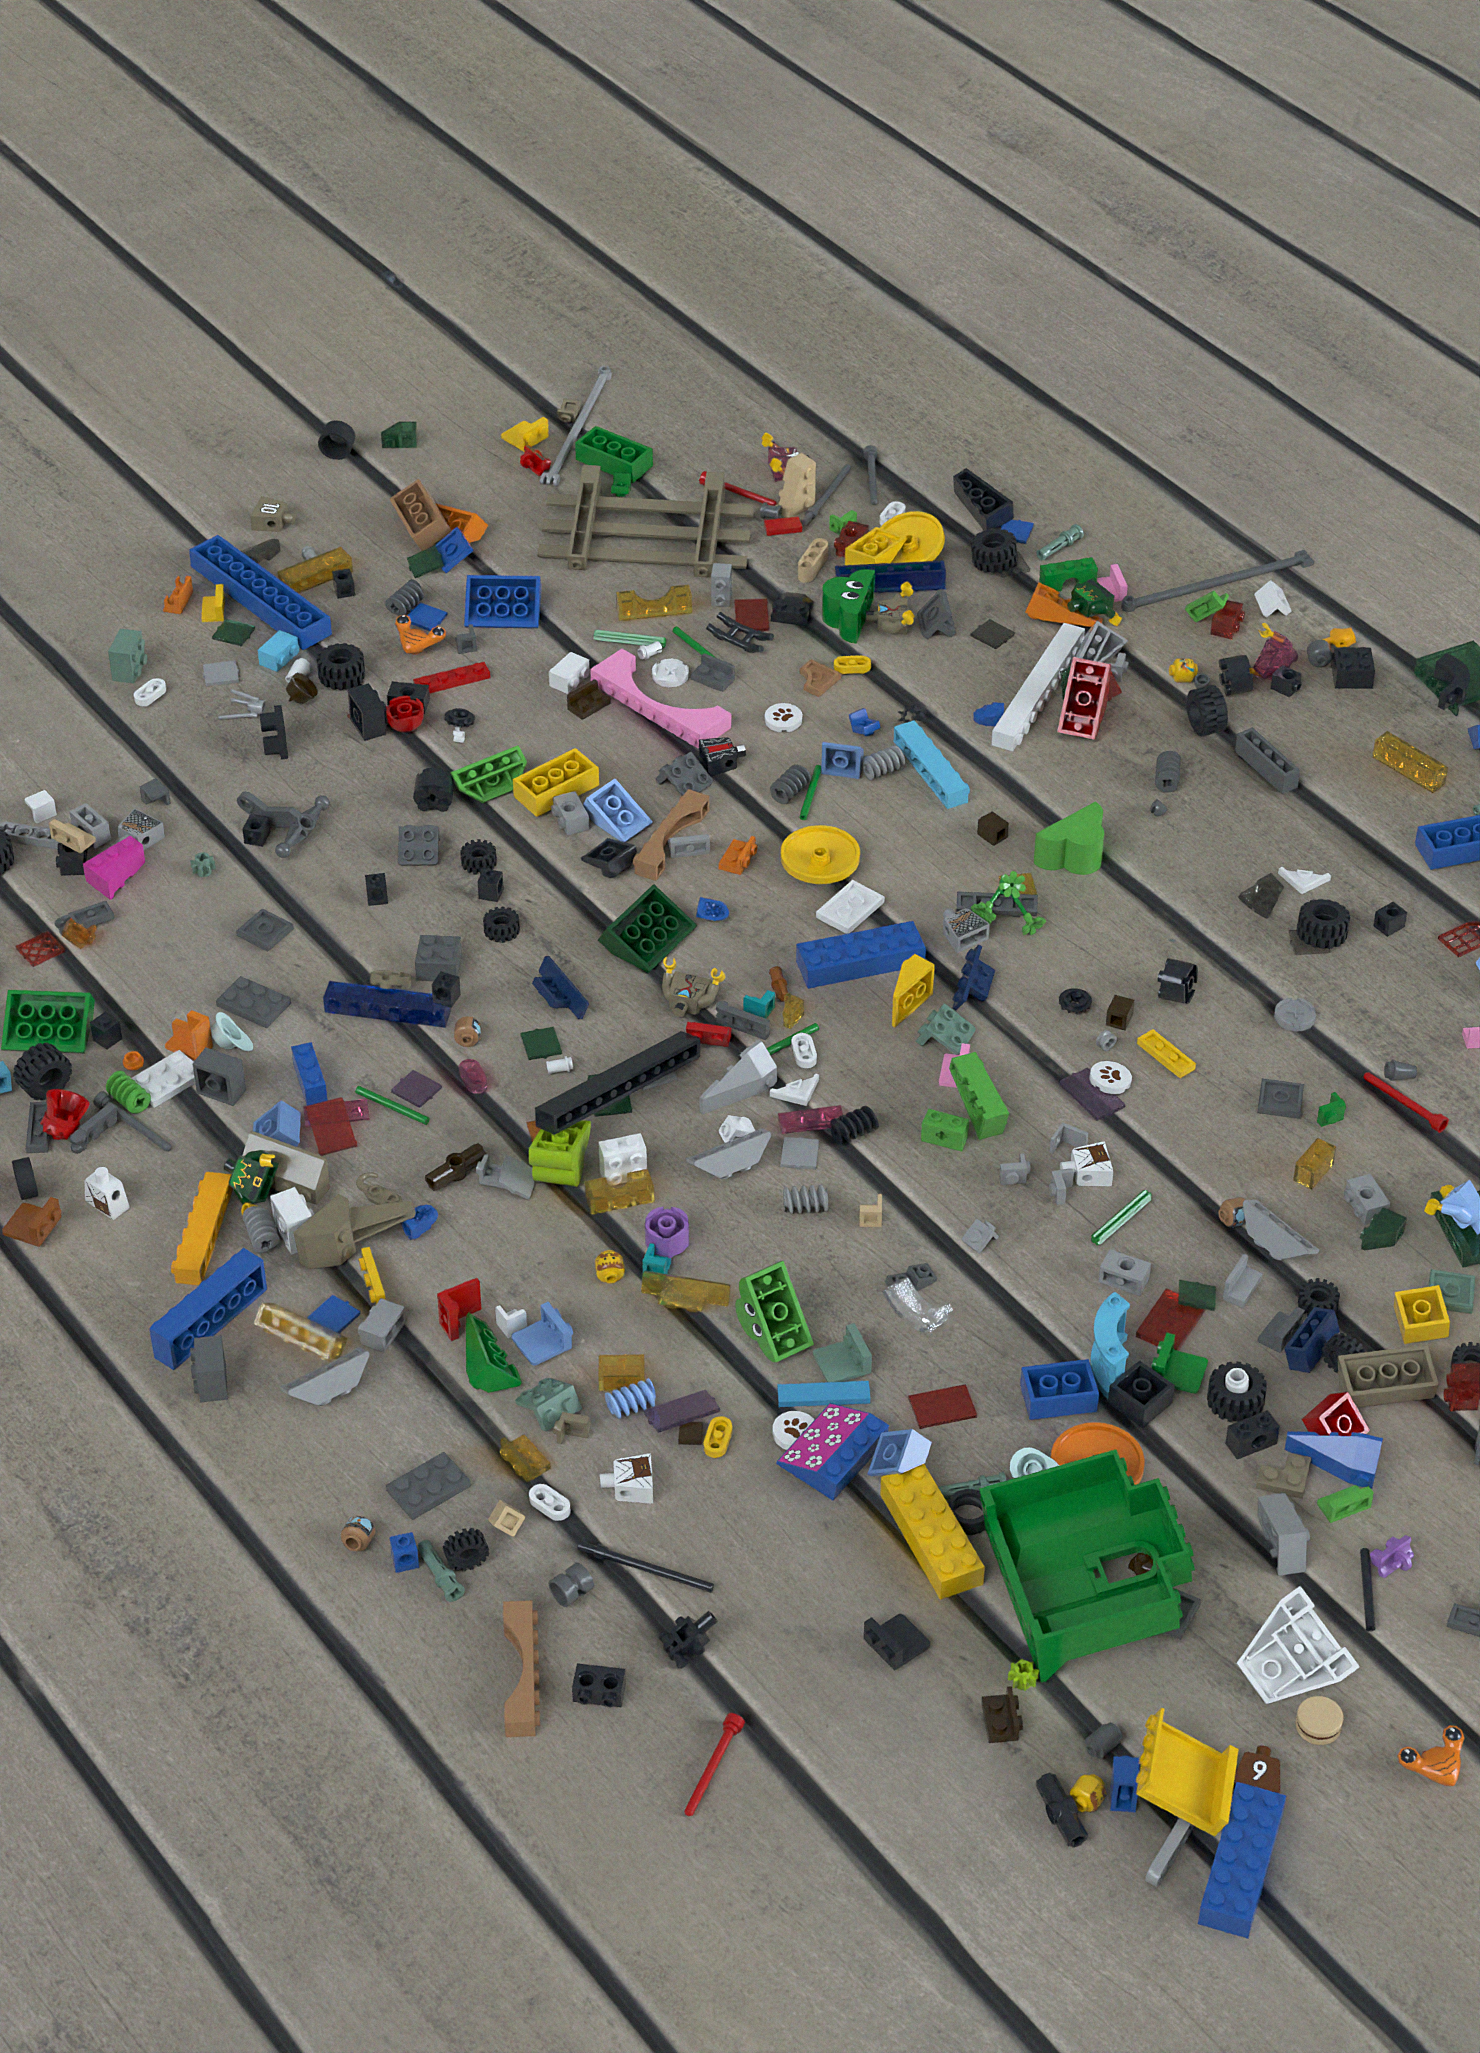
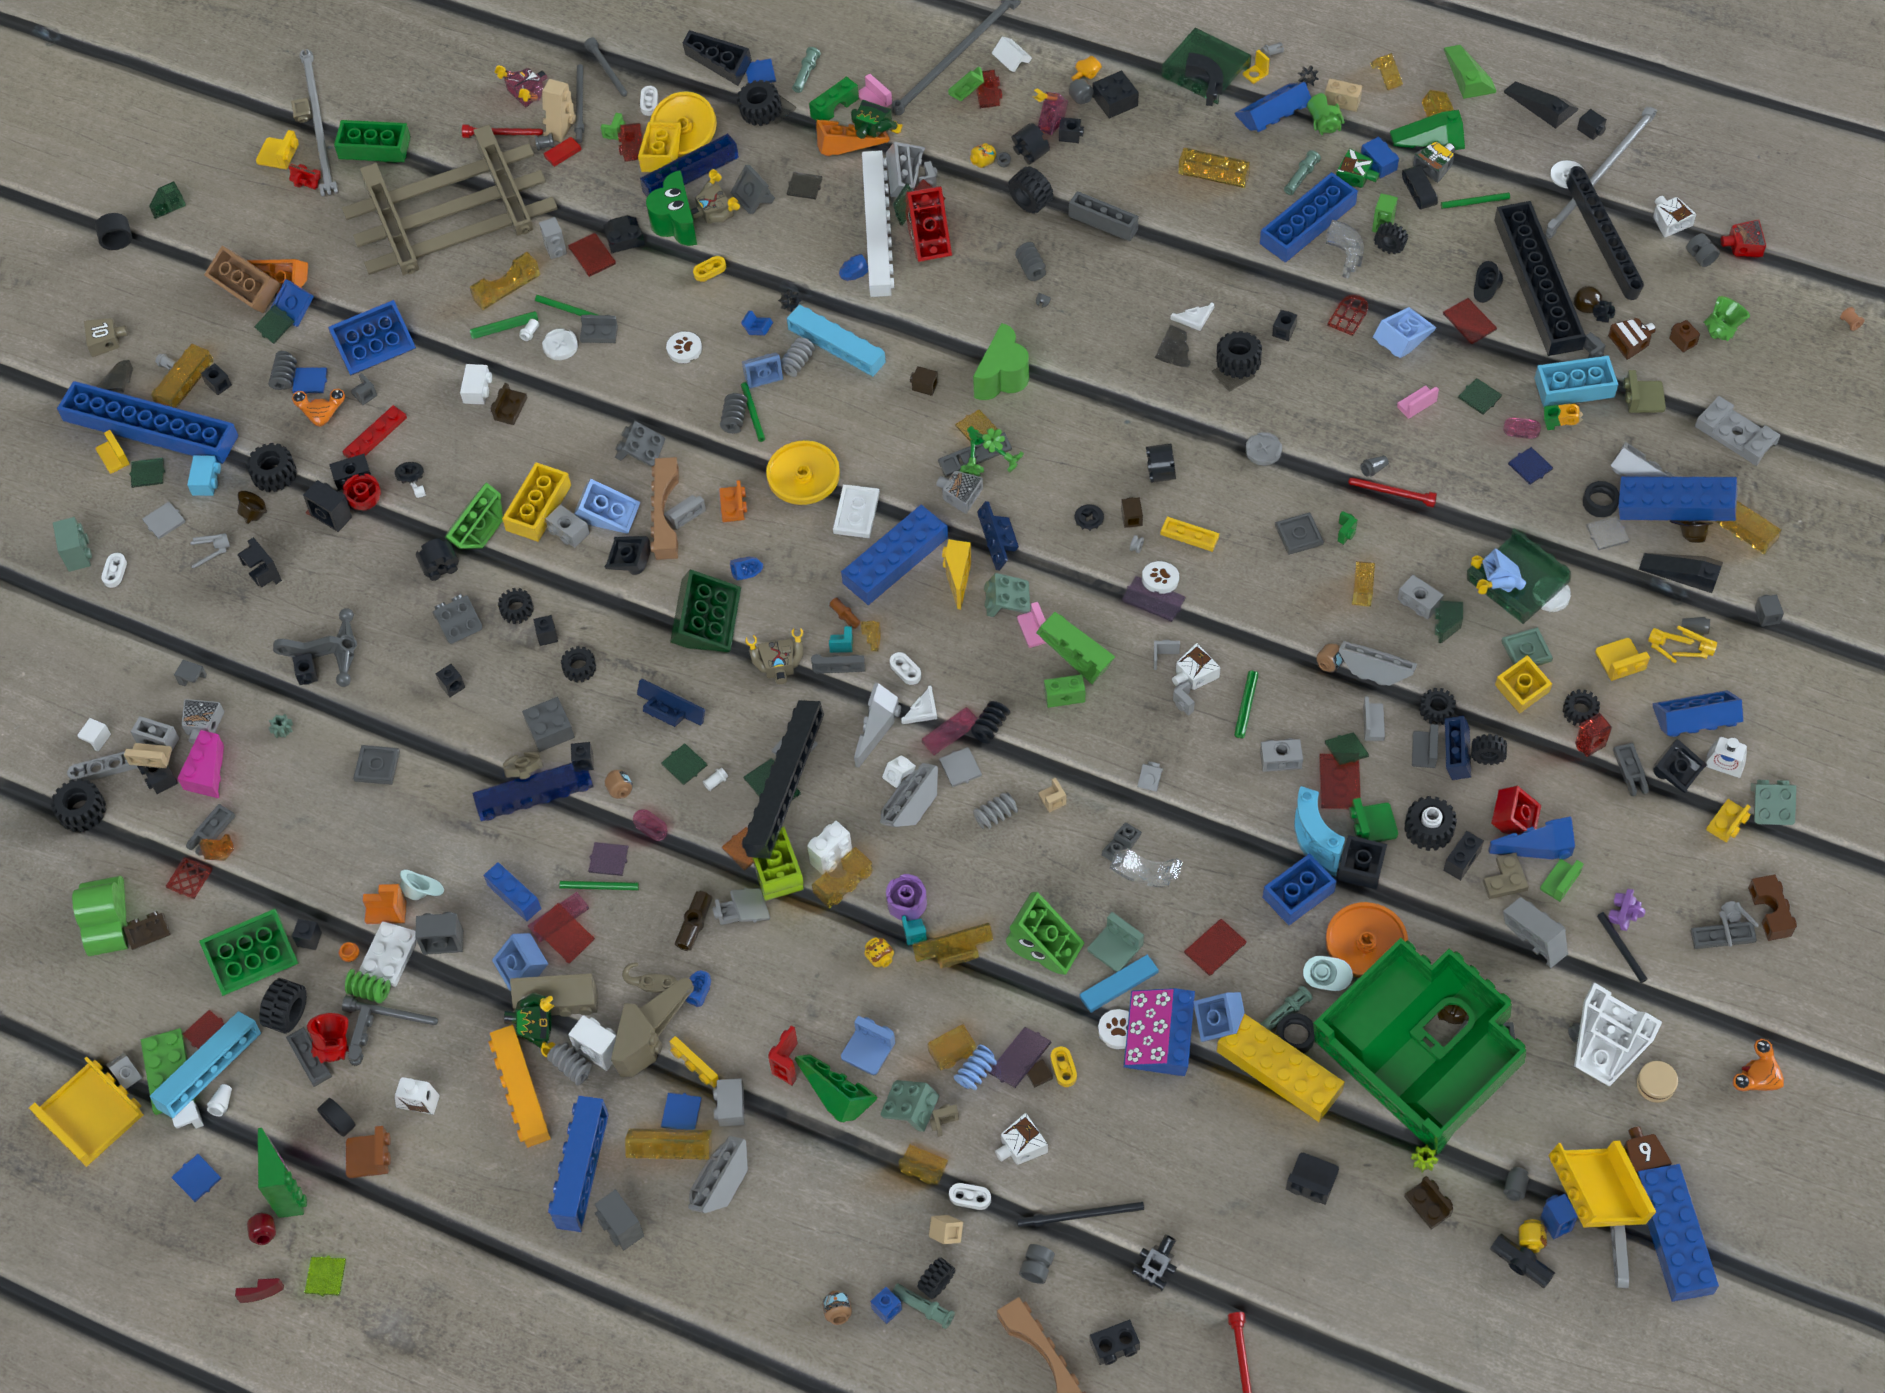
camera: 25 degrees left, 15 degrees up
(179, 596) = (73, 457): orange hinge -> none
(253, 1002) = (414, 841): dark grey plate -> none
(299, 666) = (234, 485): white cone -> none
(428, 1485) = (862, 1231): dark grey plate -> none
(511, 1321) = (832, 1044): white panel -> none
(616, 680) = (615, 390): bright pink arch -> none
(621, 484) = (397, 169): green bracket -> none
(710, 1033) = (820, 689): red bracket -> none
(719, 755) = (655, 410): black torso -> none
(735, 627) = (588, 273): black piece -> none
(788, 1041) = (884, 666): green bar -> none
(813, 560) = (611, 177): tan beam -> none
(818, 677) = (688, 292): medium nougat tile -> none
(1014, 1172) = (1142, 704): light grey bracket -> none
(1388, 1376) = (1533, 753): dark tan slope -> none

